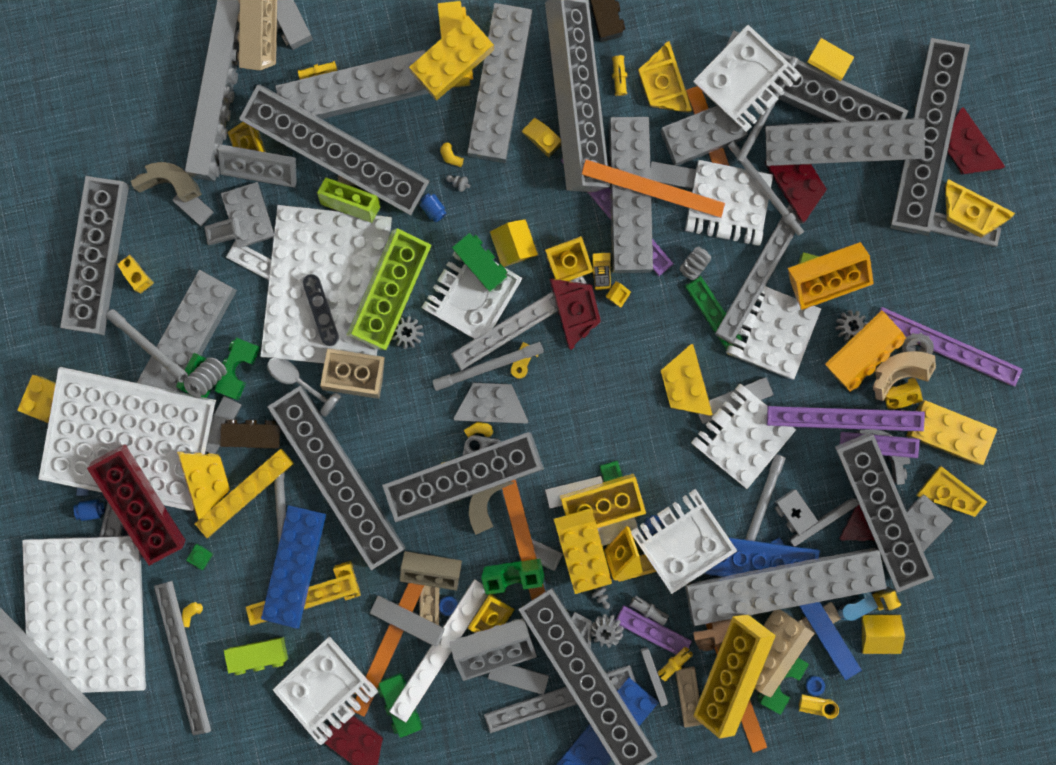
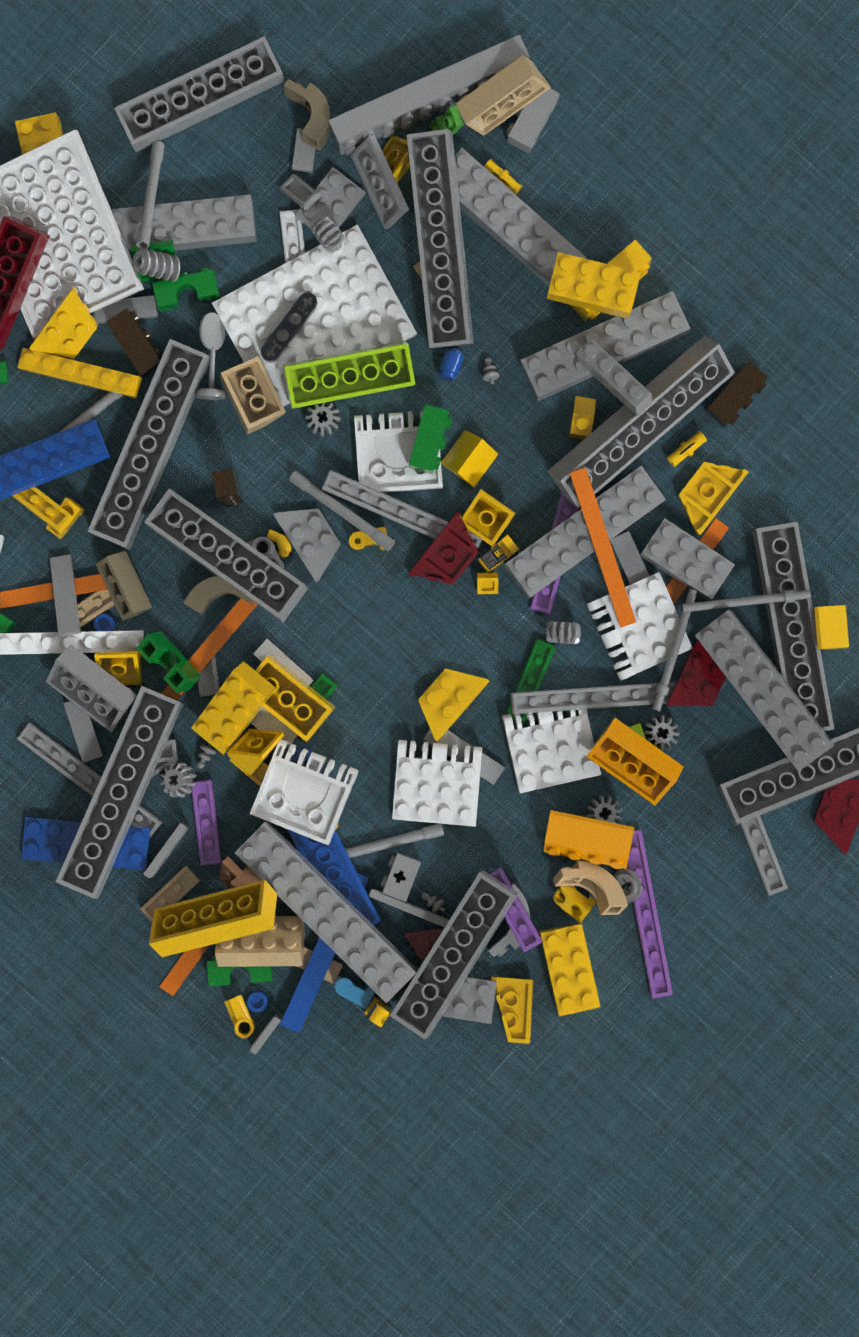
camera: 55 degrees right, 0 degrees up
(134, 274) = (208, 141): yellow leg -> none
(248, 81) = (450, 120): none -> bright green slope
(271, 231) = (328, 234): none -> light grey gear
(348, 200) = (404, 283): lime brick -> none
(412, 440) = (227, 487): none -> dark brown brick
(449, 157) = (507, 346): yellow arm -> none
(532, 90) = (614, 377): none -> light grey brick
(649, 610) = (222, 805): light grey pin -> none
(675, 663) = (190, 861): yellow pin -> none
(744, 75) = (761, 558): white hinge -> none
(816, 235) = (669, 732): none -> light grey gear
(830, 501) = (432, 901): none -> light grey hair
(844, 696) = (265, 1033): none -> light grey tile
(845, 418) = (515, 862): medium lavender tile -> none
(882, 634) = (345, 1030): yellow slope -> none
(973, 211) = (785, 852): yellow wing -> none

